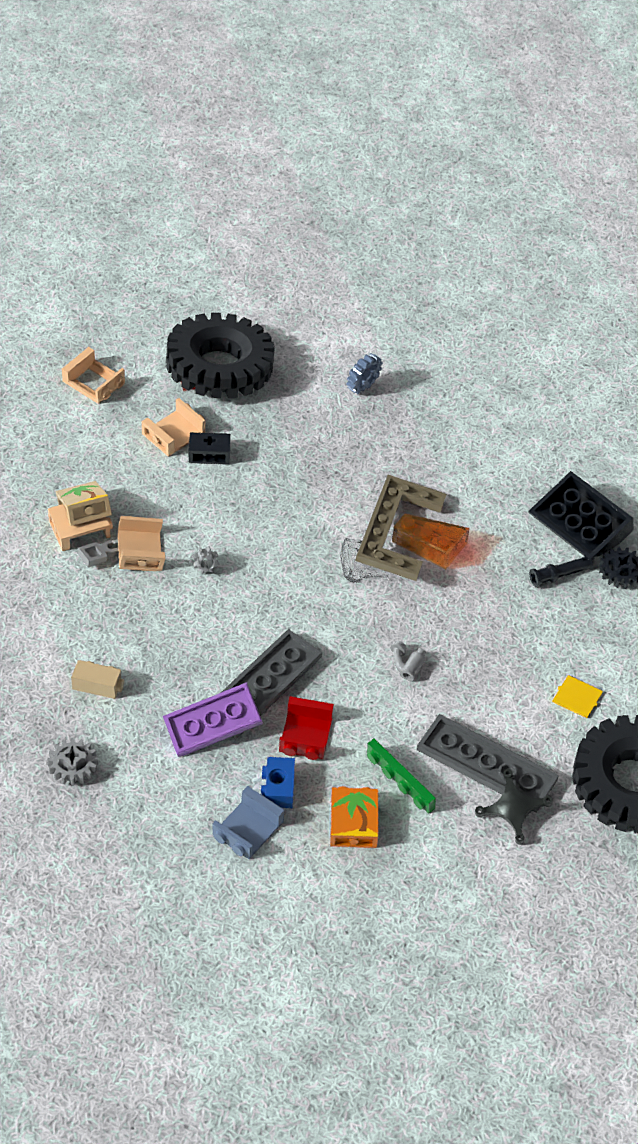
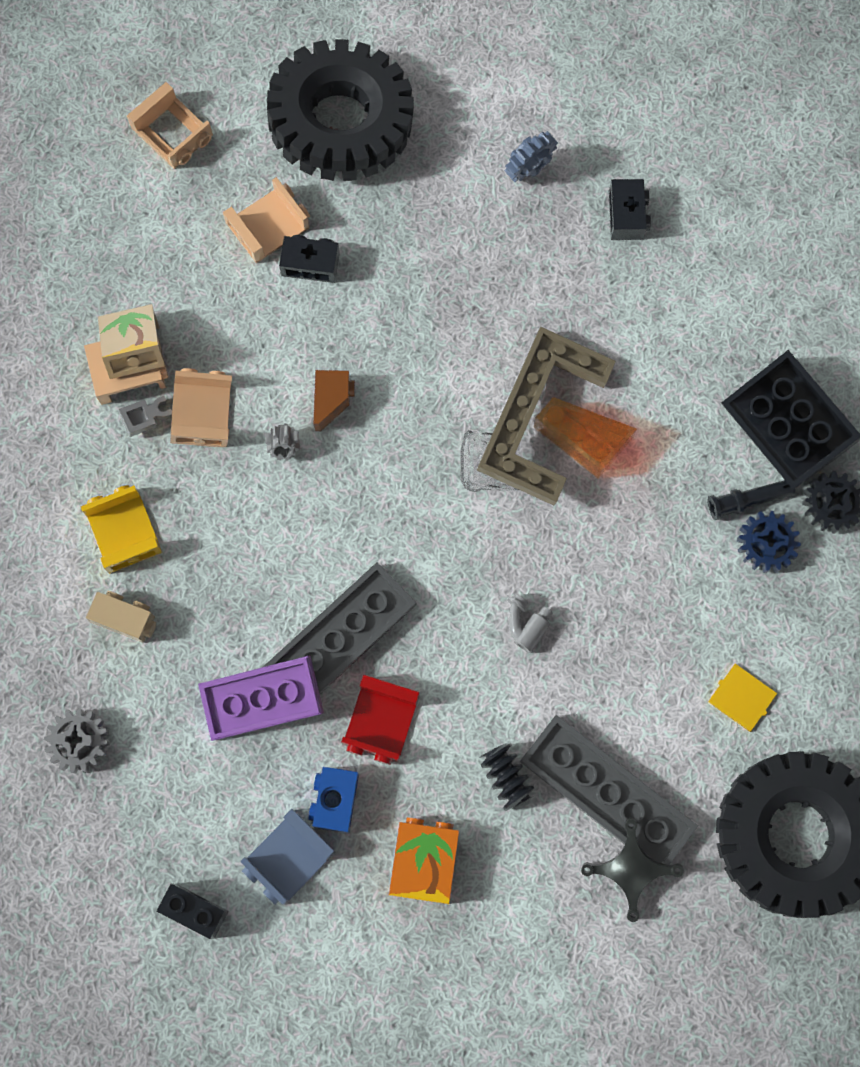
camera: 10 degrees right, 25 degrees up
(88, 624) = (121, 528): none -> yellow panel
(179, 863) = (192, 911): none -> black brick
(238, 529) = (331, 396): none -> dark orange slope
(406, 781) = (498, 817): green plate -> none
(408, 754) = (506, 776): none -> black piece
(440, 403) = (626, 195): none -> black brick
(578, 595) = (770, 529): none -> dark blue gear

